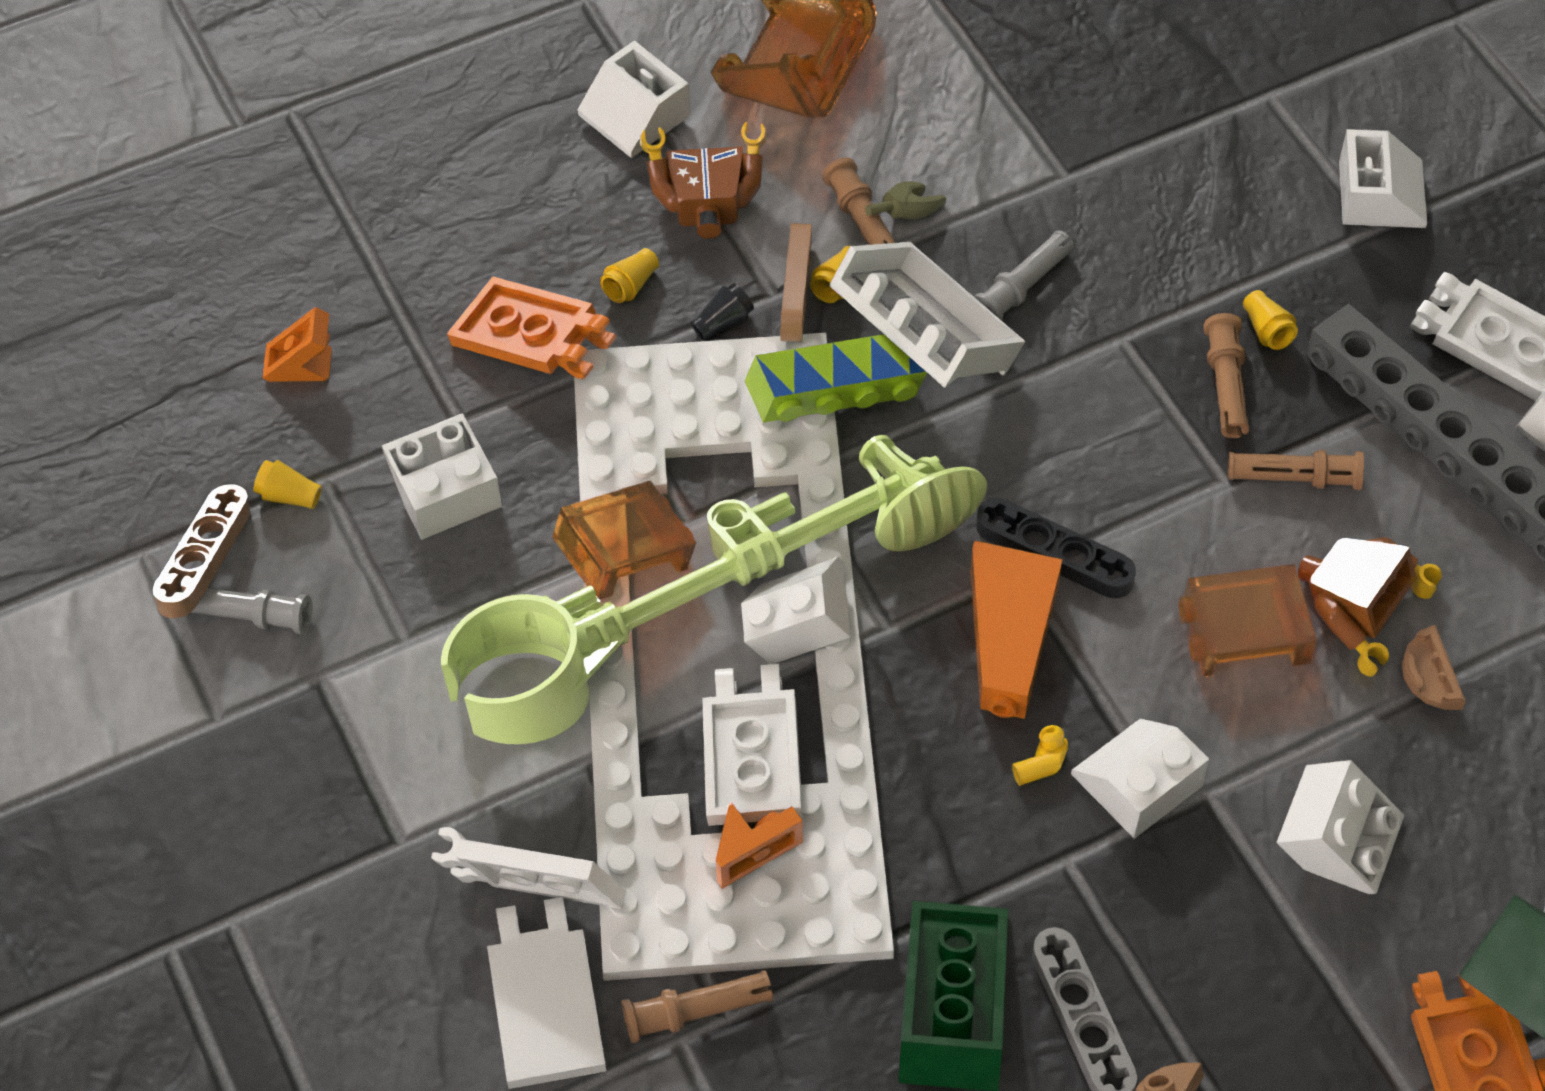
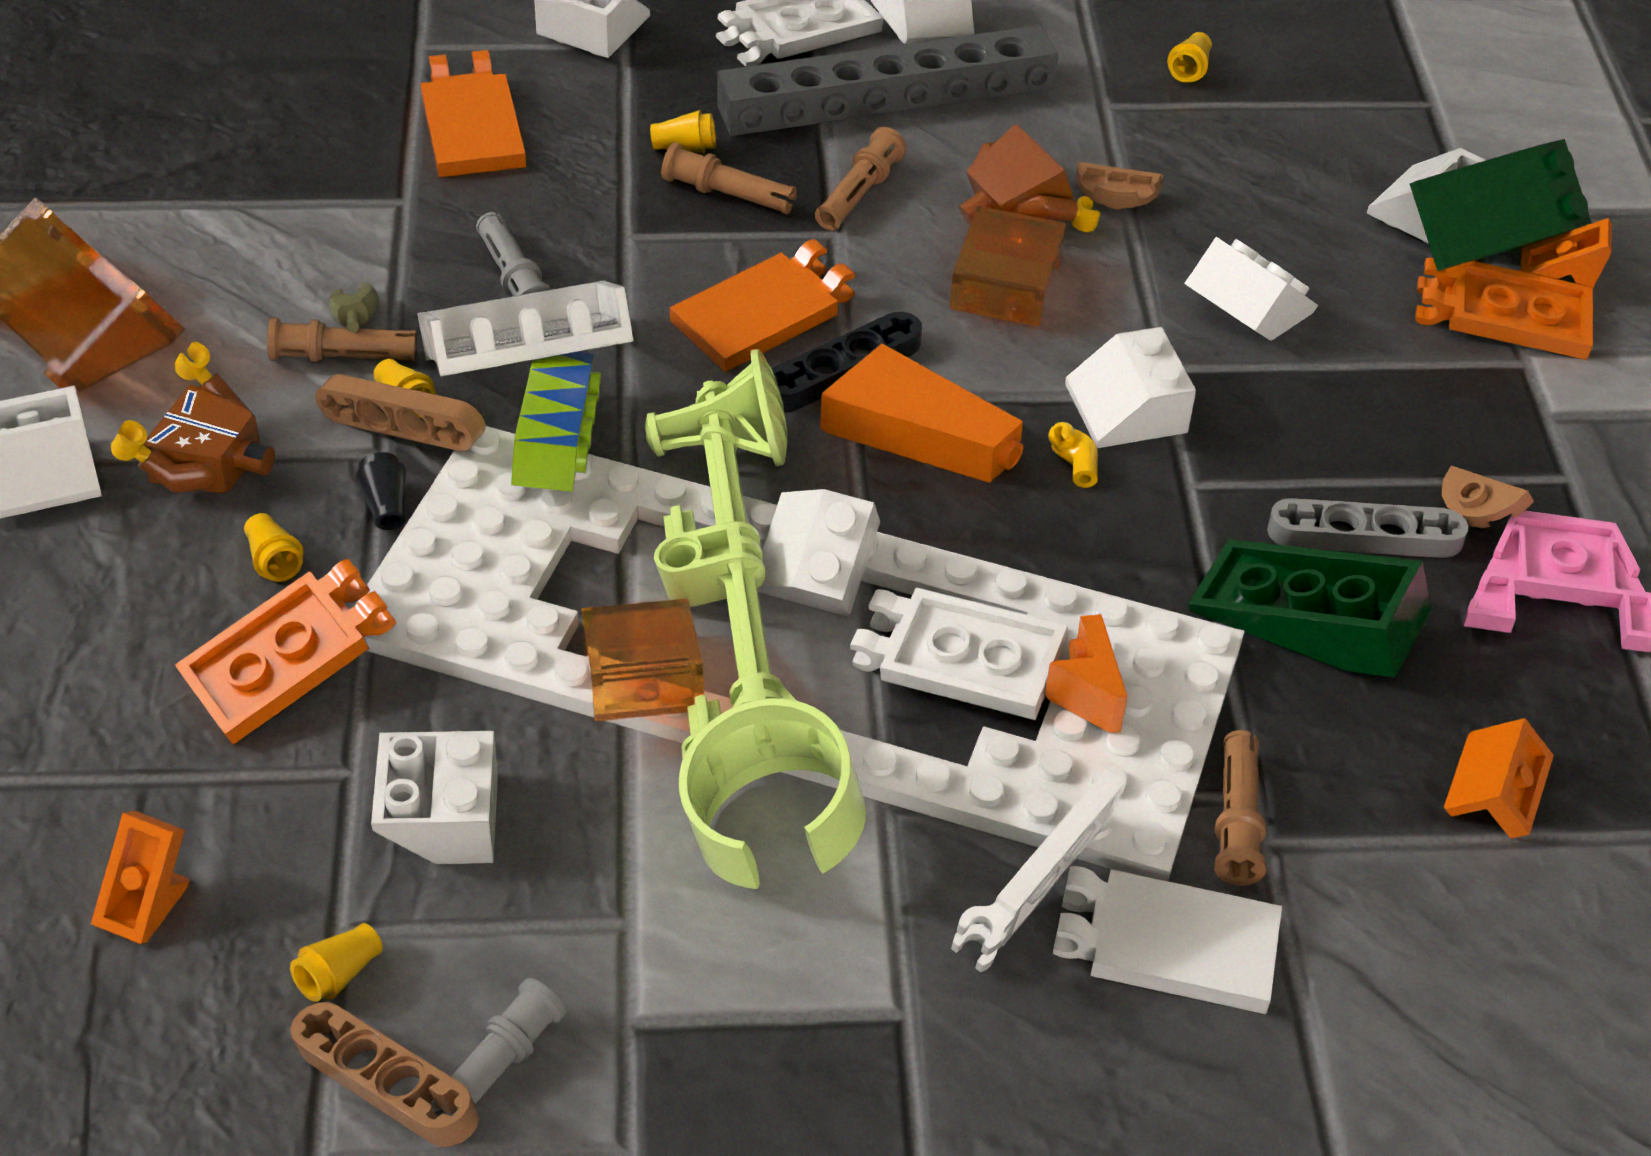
camera: 70 degrees left, 10 degrees down
(1088, 465) = (763, 305): none -> orange tile
(1191, 169) = (471, 119): none -> orange tile

